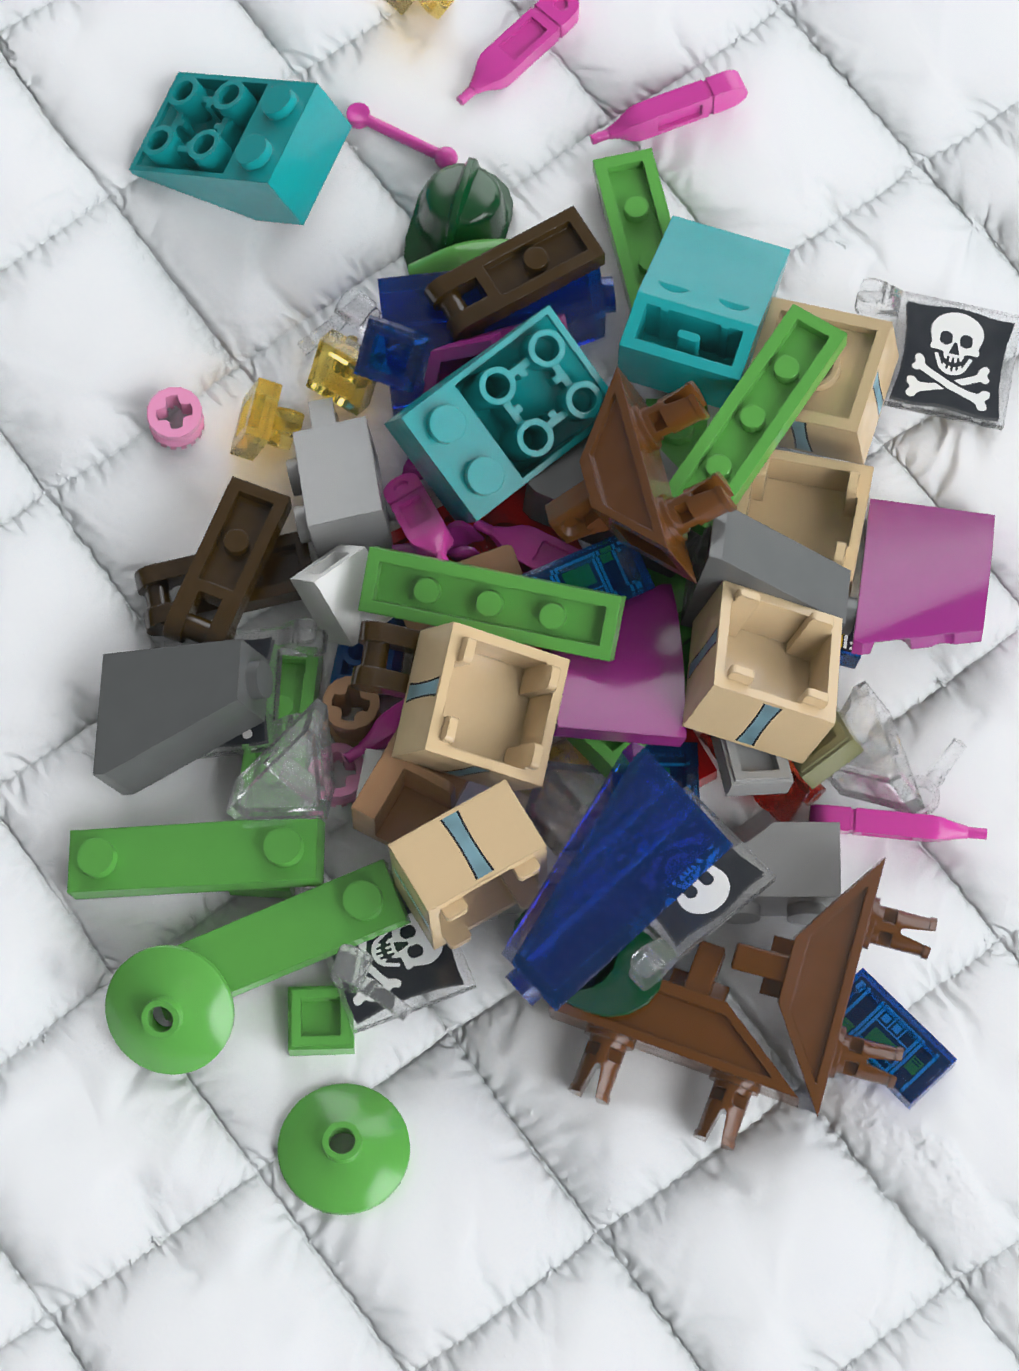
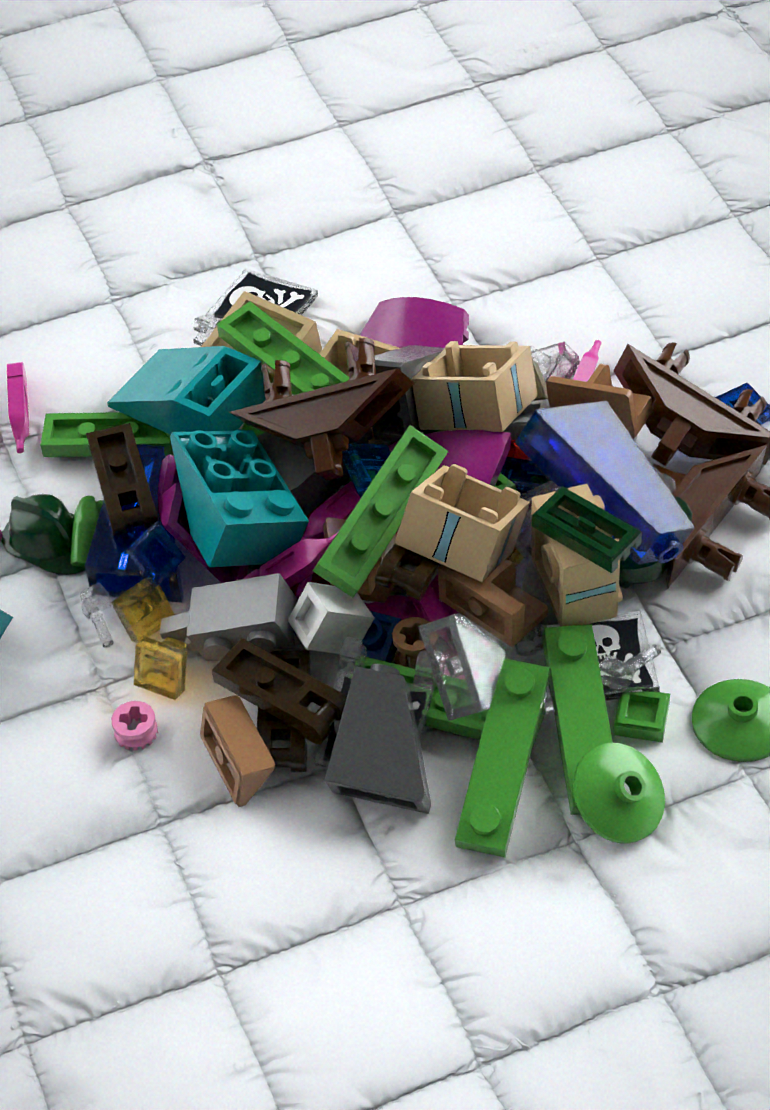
camera: 75 degrees left, 20 degrees down
(150, 540) = (235, 747): none -> medium nougat slope
(428, 908) = (580, 533): none -> dark green tile
(789, 852) = (629, 407): none -> medium nougat panel

